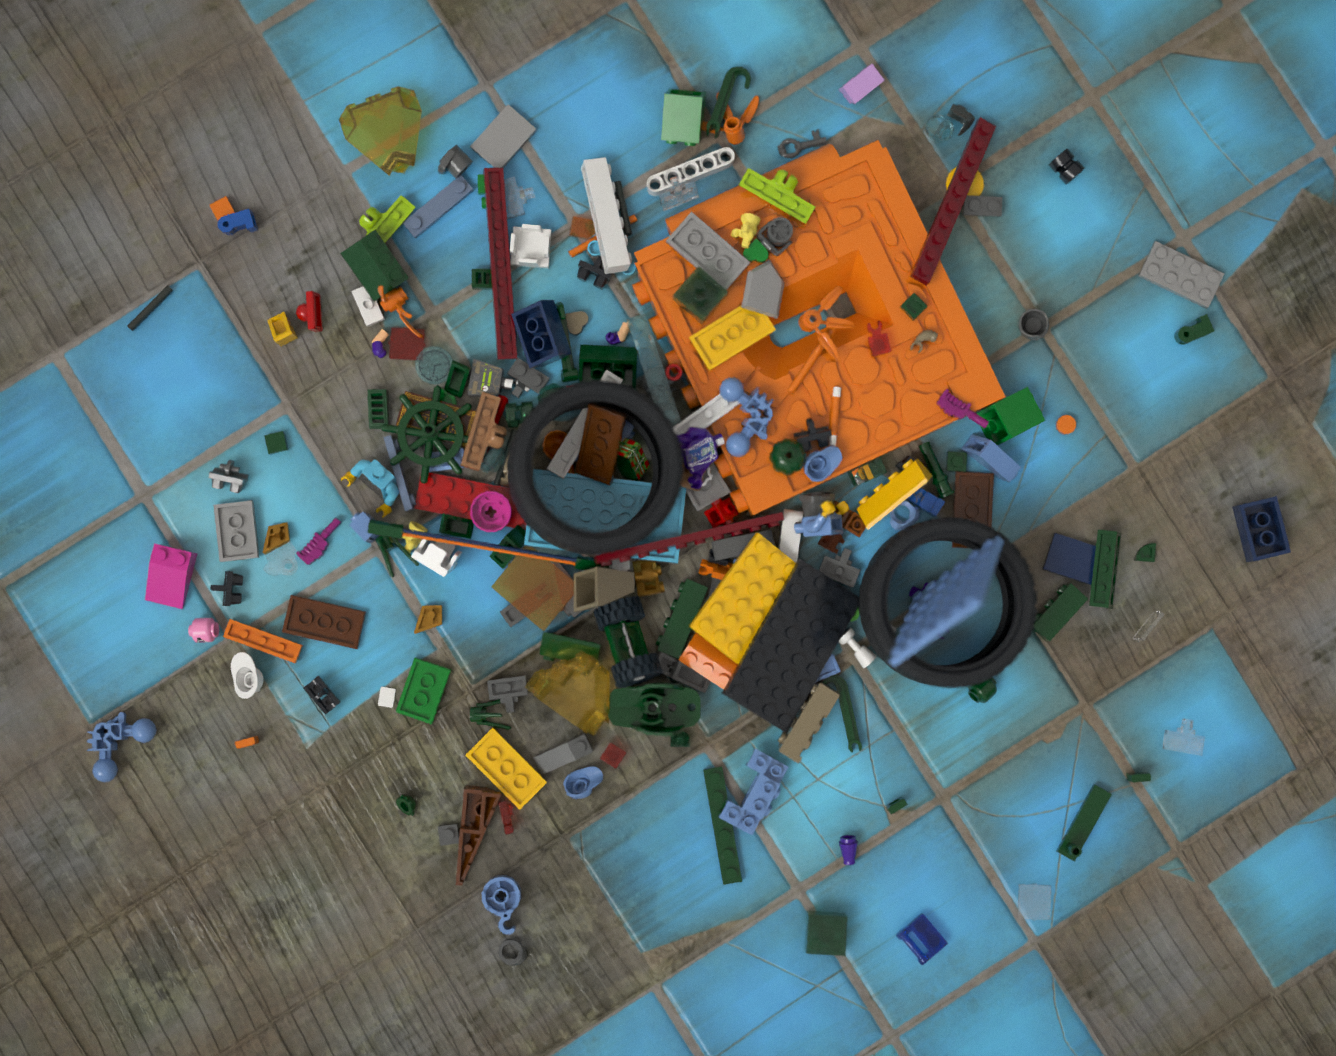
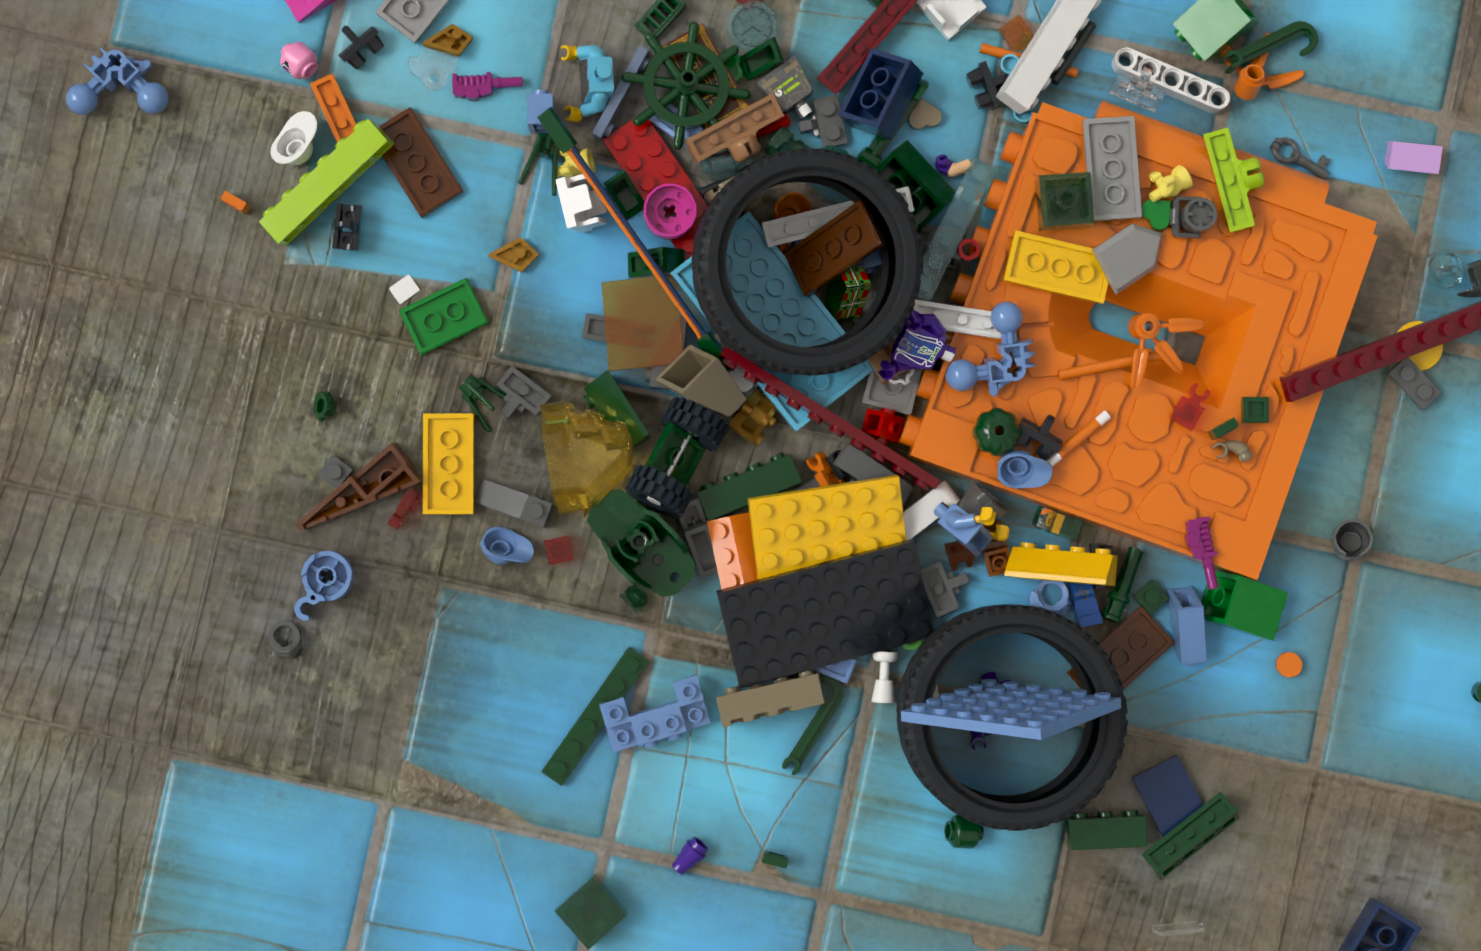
camera: 45 degrees right, 0 degrees up
(286, 682) = (326, 182): none -> lime brick
(907, 333) = (1223, 428): none -> dark green tile
(1146, 553) = (1244, 860): dark green tile -> none

